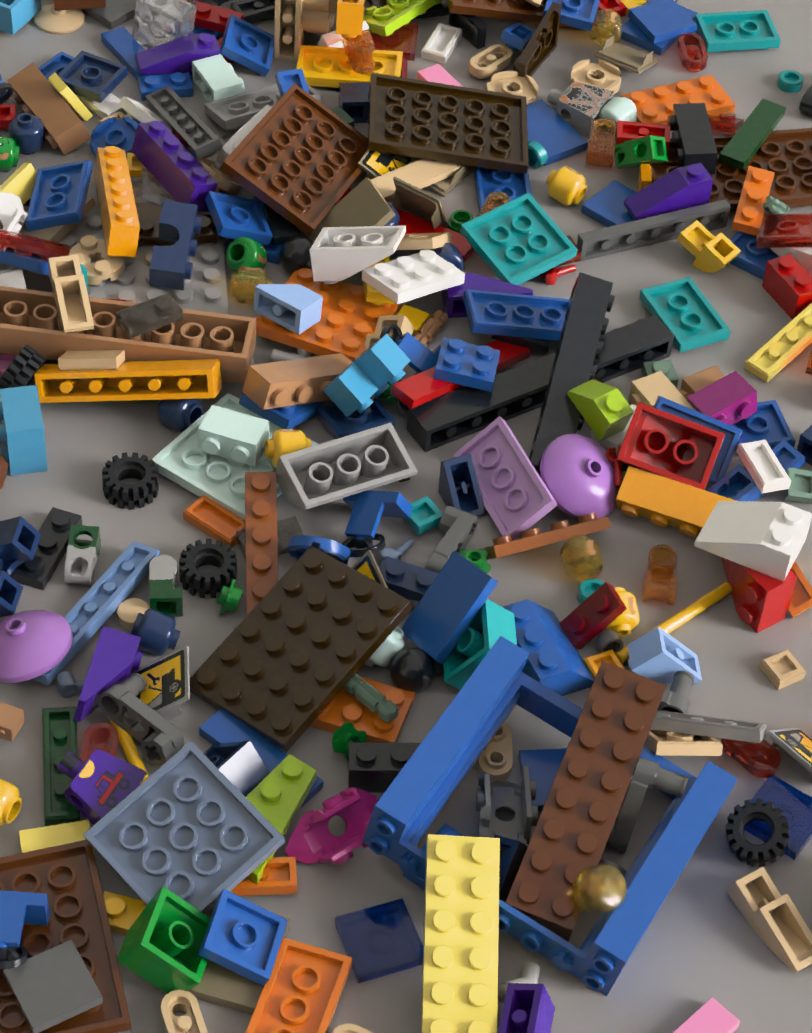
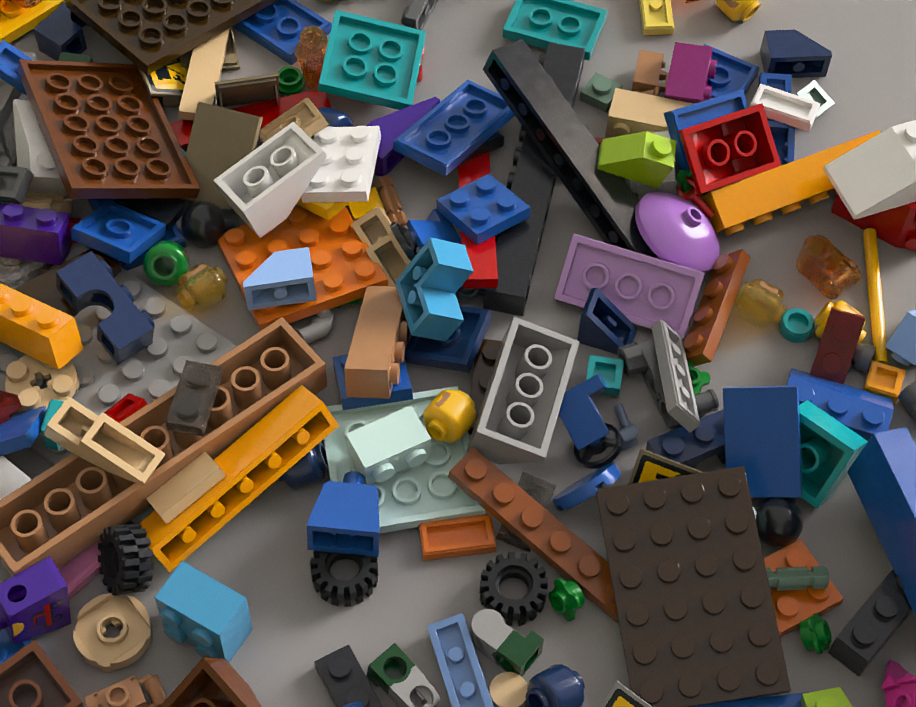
camera: 45 degrees left, 10 degrees up
(157, 446) = (345, 518): none -> blue torso
(457, 536) = (675, 376): none -> light grey tile

